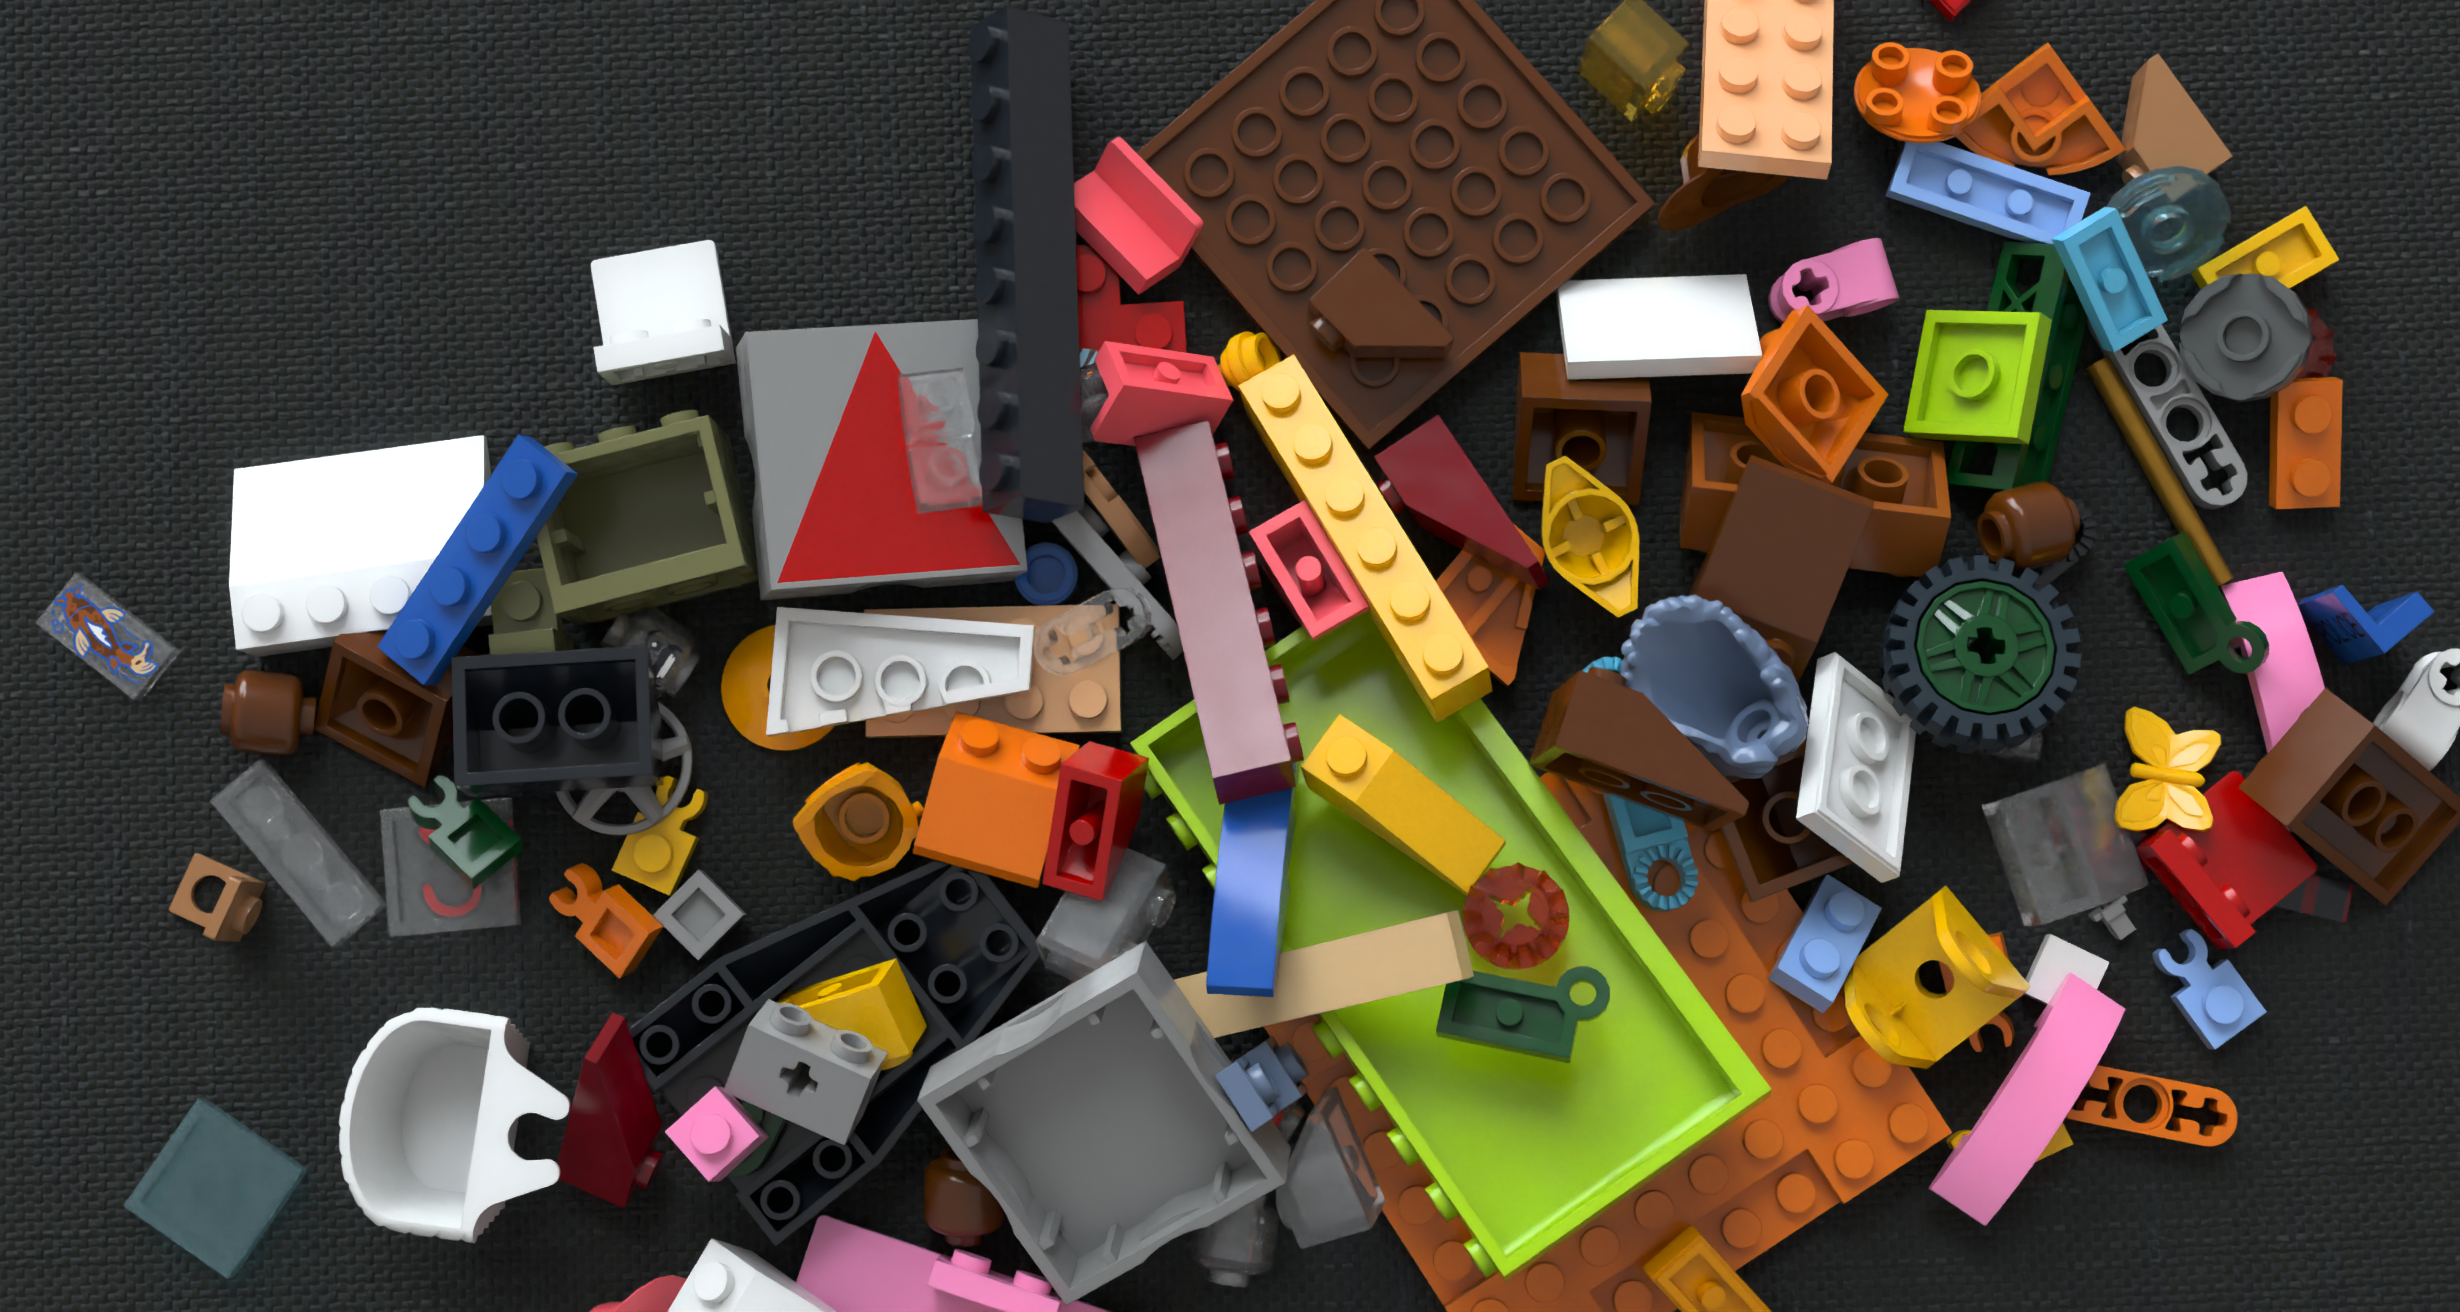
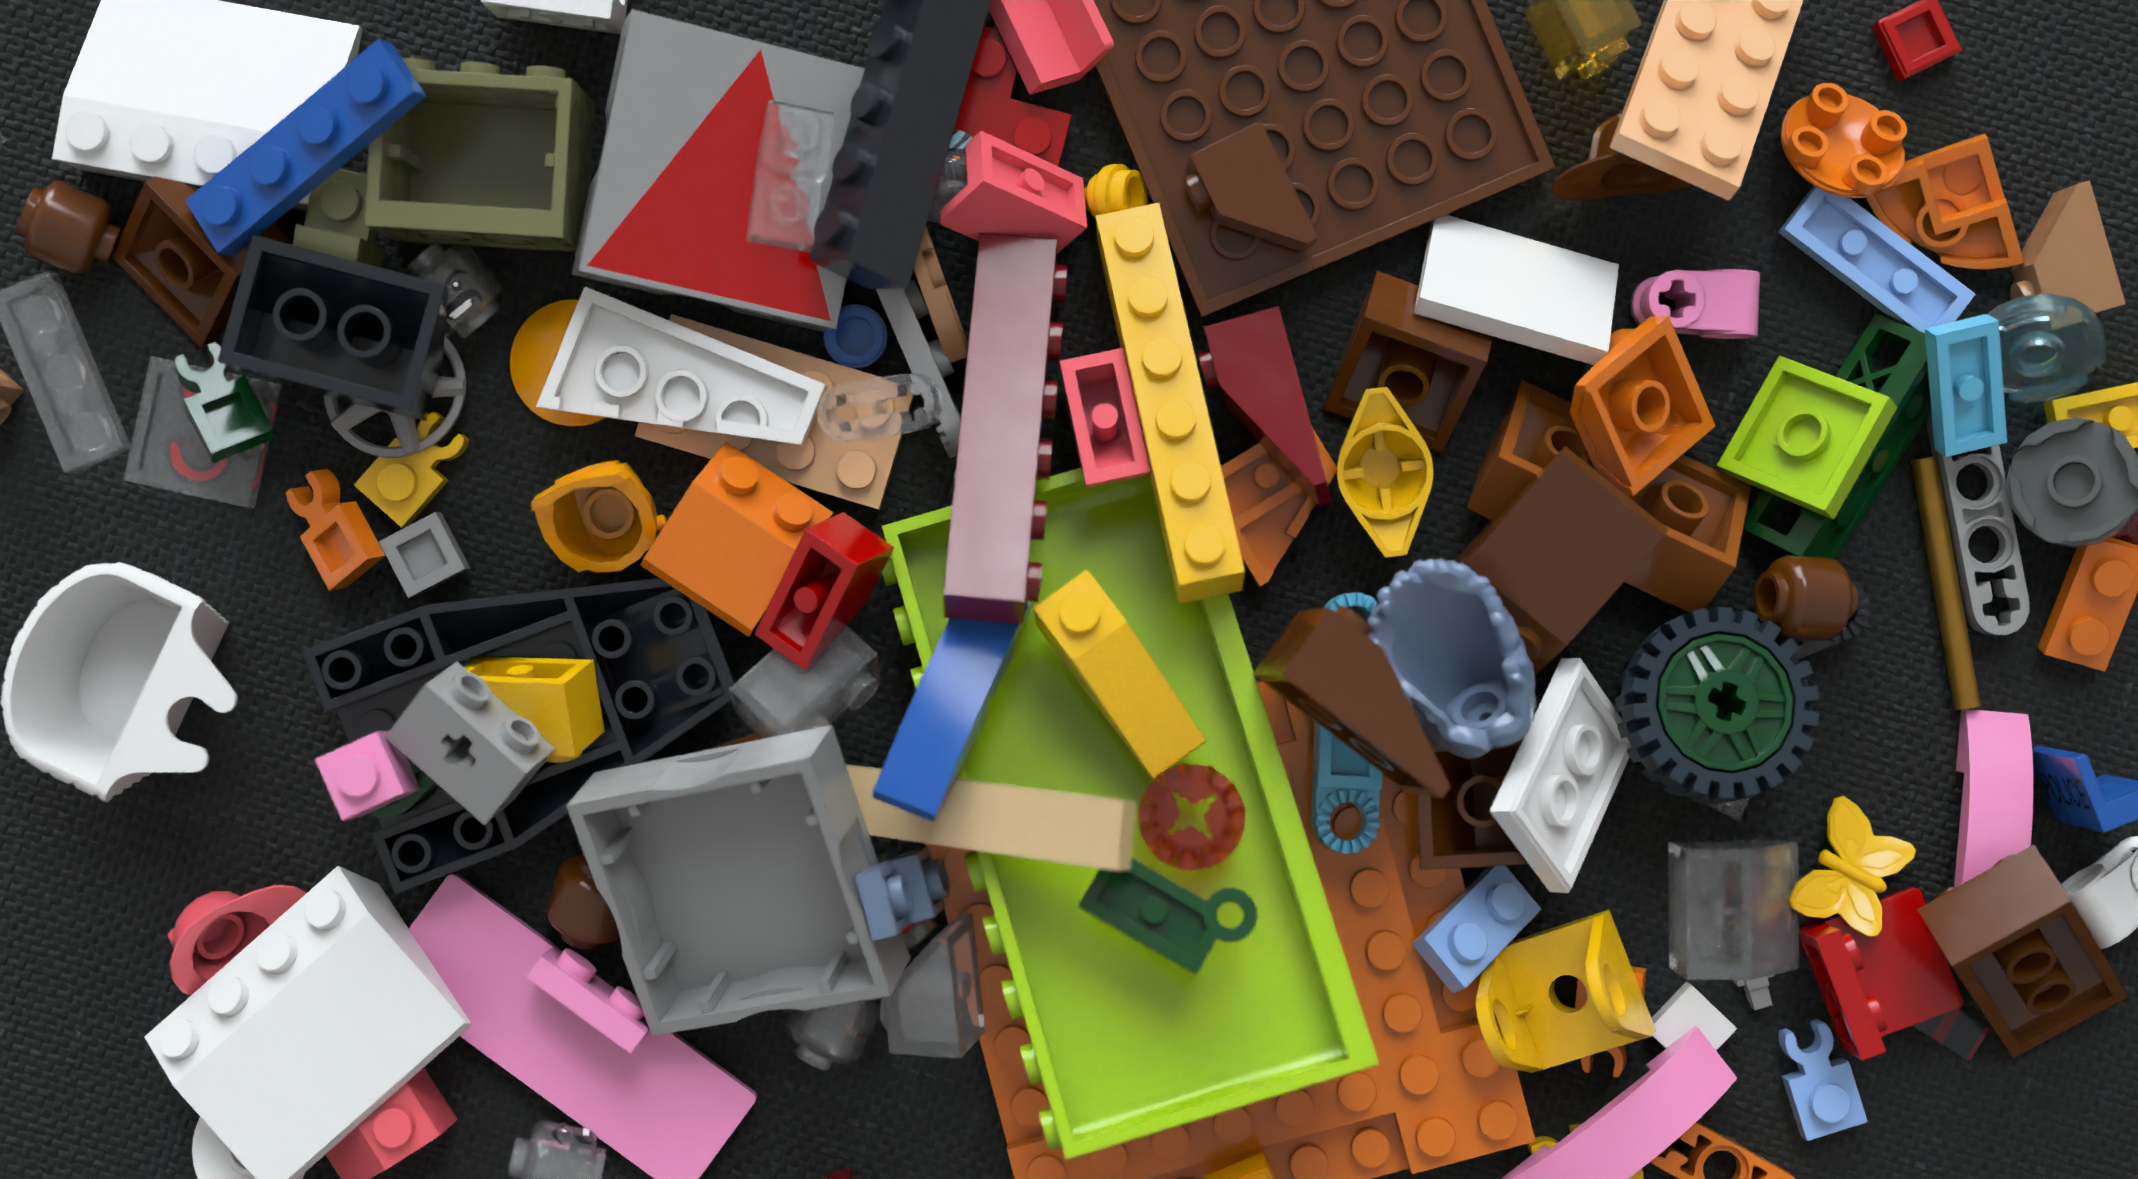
camera: 10 degrees right, 5 degrees up
(611, 1121) = (276, 726): dark red slope -> none
(2193, 608) = (1933, 724): dark green hinge -> none

